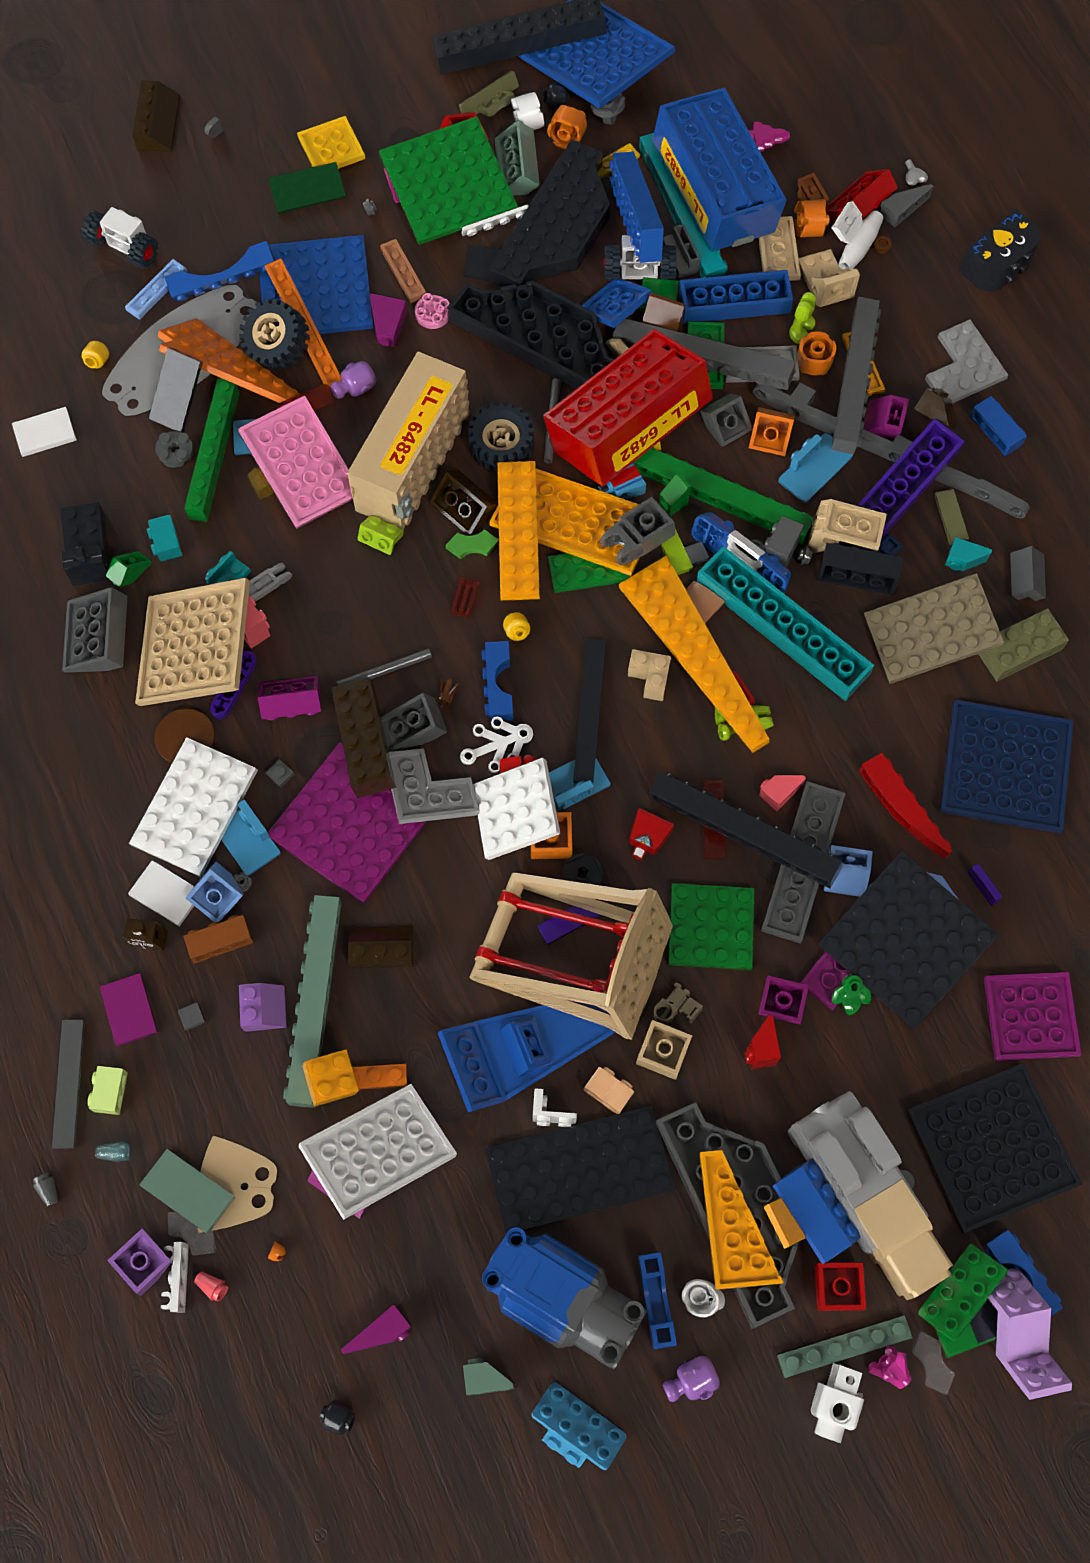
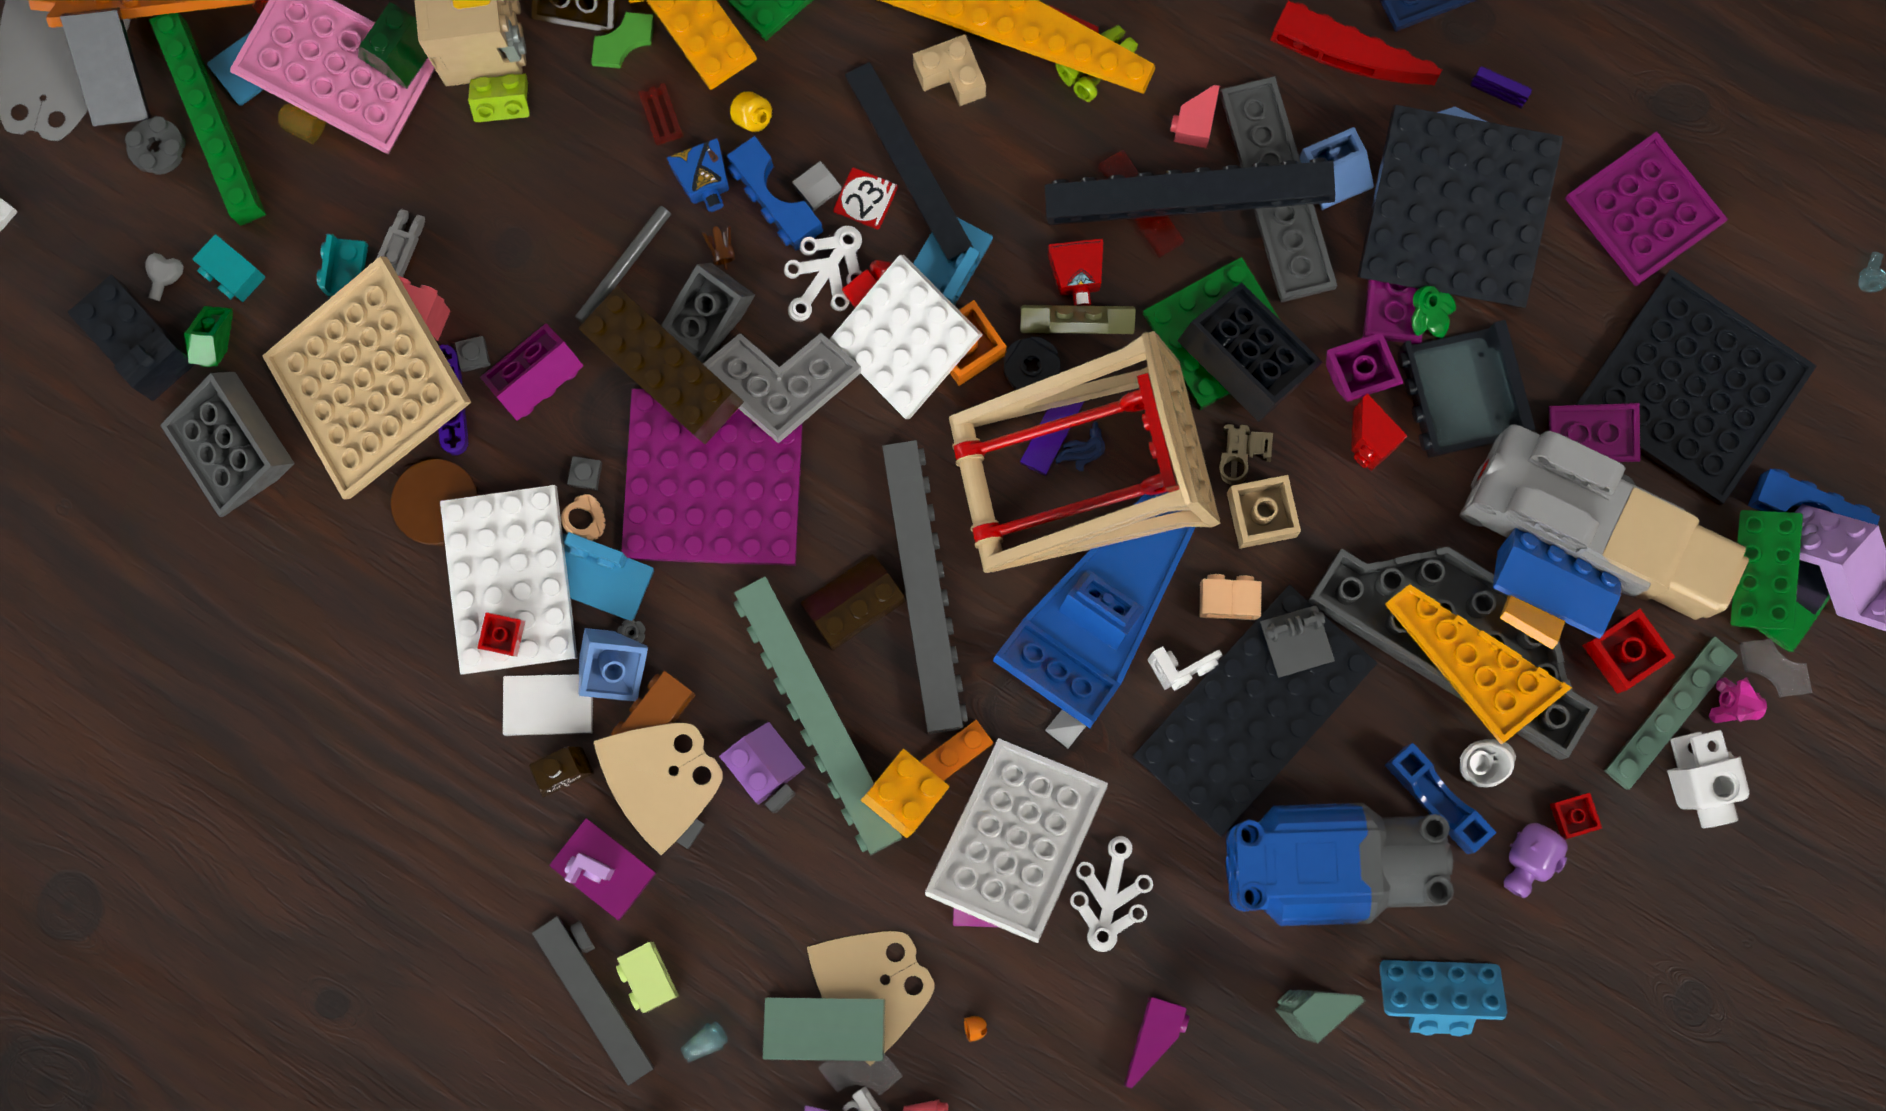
camera: 30 degrees left, 10 degrees up
(88, 1041) = (582, 937): none -> dark grey tile
(122, 1004) = (593, 869): none -> lavender bracket
(128, 519) = (162, 273): none -> light grey rock
(165, 834) = (501, 634): none -> red piece
(183, 981) = (639, 779): none -> tan piece
(258, 1035) = (781, 798): none -> dark grey tile
(265, 667) = (472, 354): none -> dark grey plate
(269, 791) = (587, 503): none -> light nougat piece
(334, 469) = (394, 46): none -> dark green slope
(411, 1227) = (1109, 899): none -> white plant
(427, 965) = (923, 588): none -> dark grey brick
(455, 1105) = (1065, 728): none -> light grey slope
(465, 645) = (702, 173): none -> blue torso
(526, 692) = (816, 186): none -> light grey piece
(551, 716) = (865, 198): none -> sticker
(580, 945) = (1083, 451): none -> dark blue piece
(628, 863) = (1077, 319): none -> olive bracket
(632, 1142) = (1297, 641): none -> dark grey hinge
(719, 946) = (1249, 351): none -> black slope
(738, 1371) = (1576, 816): none -> red piece
(841, 1055) = (1465, 389): none -> clear light blue panel
(910, 1135) = (1602, 427): none -> magenta tile

